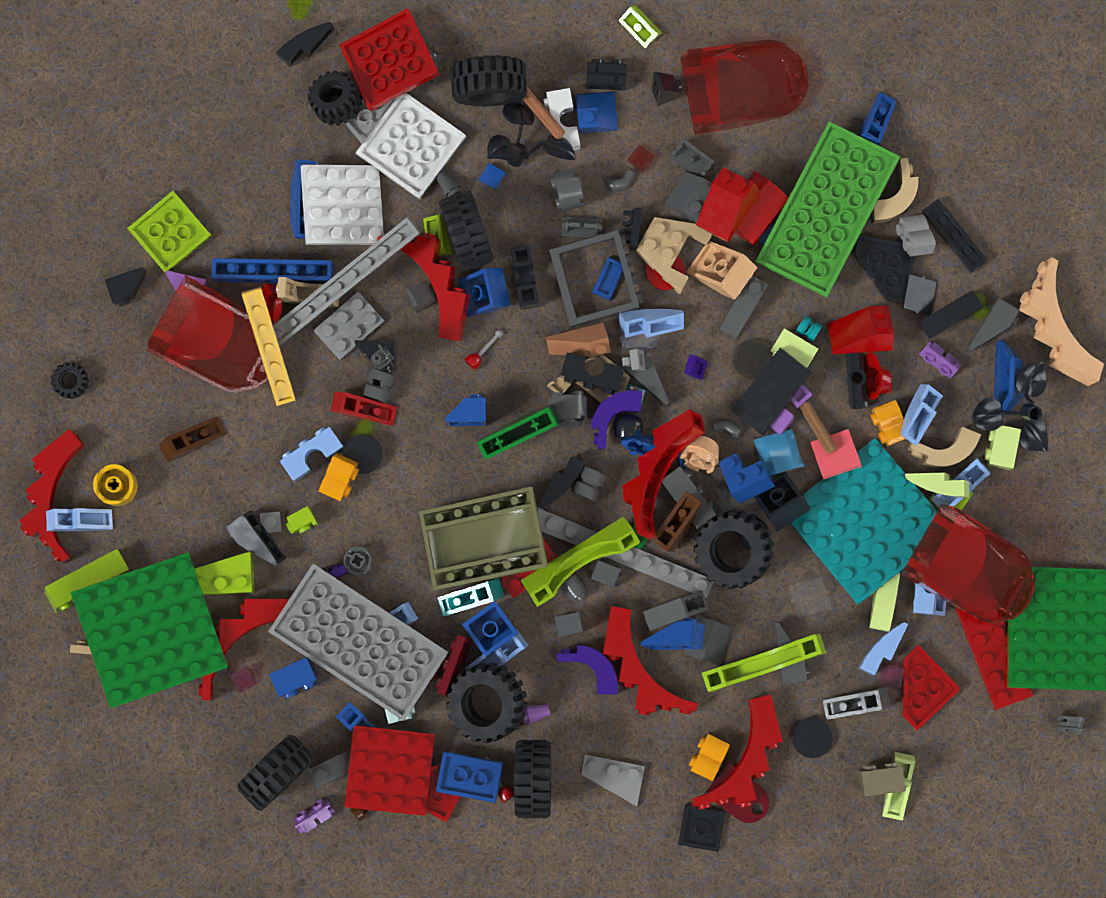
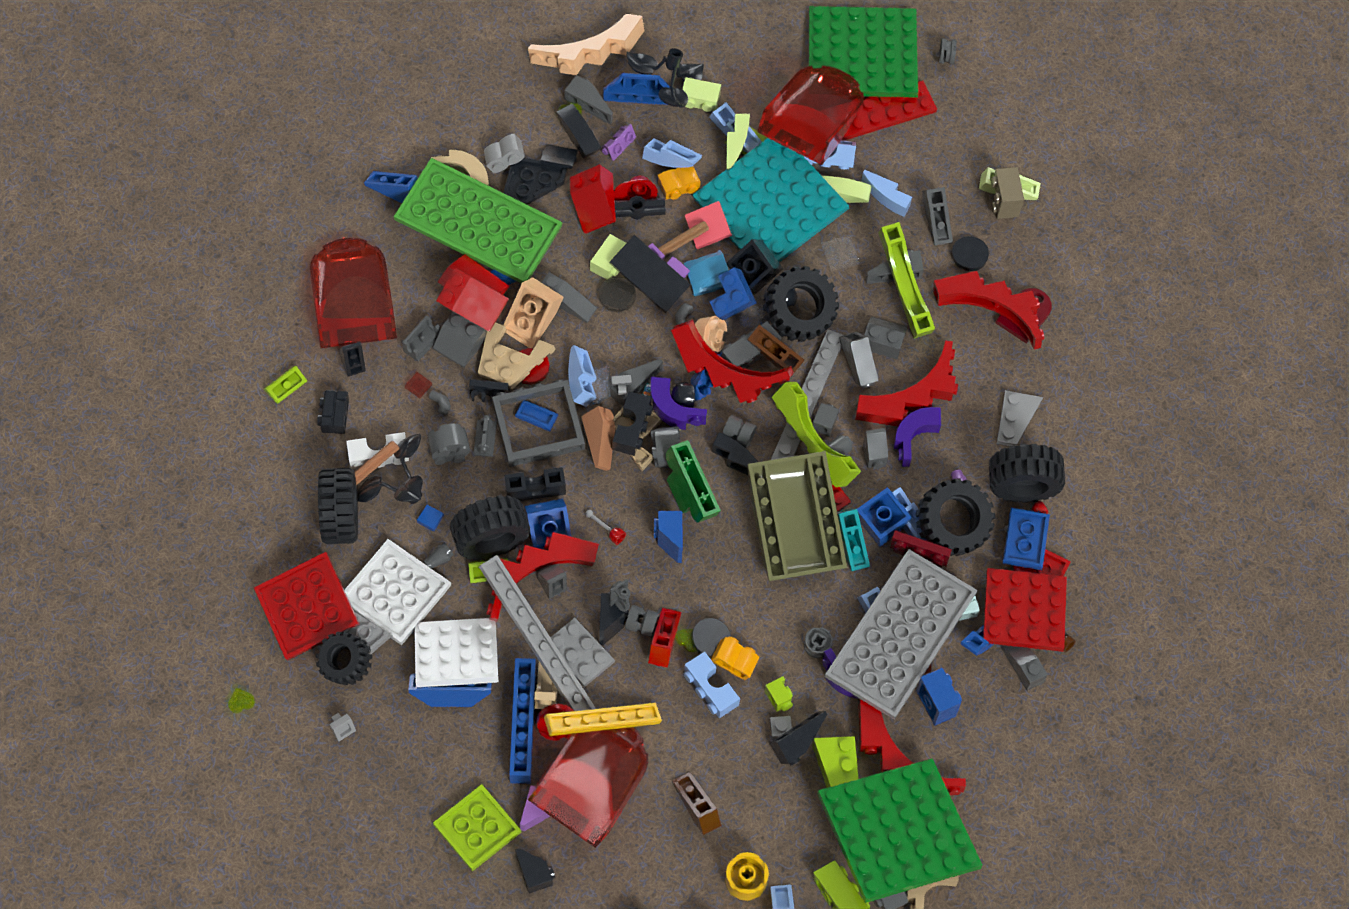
camera: 95 degrees left, 20 degrees down
(243, 679) = (940, 753): clear pink slope -> none
(270, 101) = (342, 726): none -> light grey tile
(275, 772) = (1036, 706): black tyre -> none
(304, 43) = (283, 693): black slope -> none
(305, 821) = (1067, 679): medium lavender hinge -> none
(596, 112) = (369, 423): blue slope -> none
(677, 636) = (884, 350): blue slope -> none
(695, 367) = (625, 340): dark purple plate -> none
(701, 828) = (1059, 345): black tile -> none
(709, 757) = (993, 335): light orange brick -> none
(812, 331) = (589, 245): teal wheel -> none
(891, 676) = (911, 186): clear pink slope -> none
(924, 688) = (920, 162): red plate -> none
(954, 235) = (504, 126): black plate -> none
(961, 448) = (707, 132): tan arch -> none

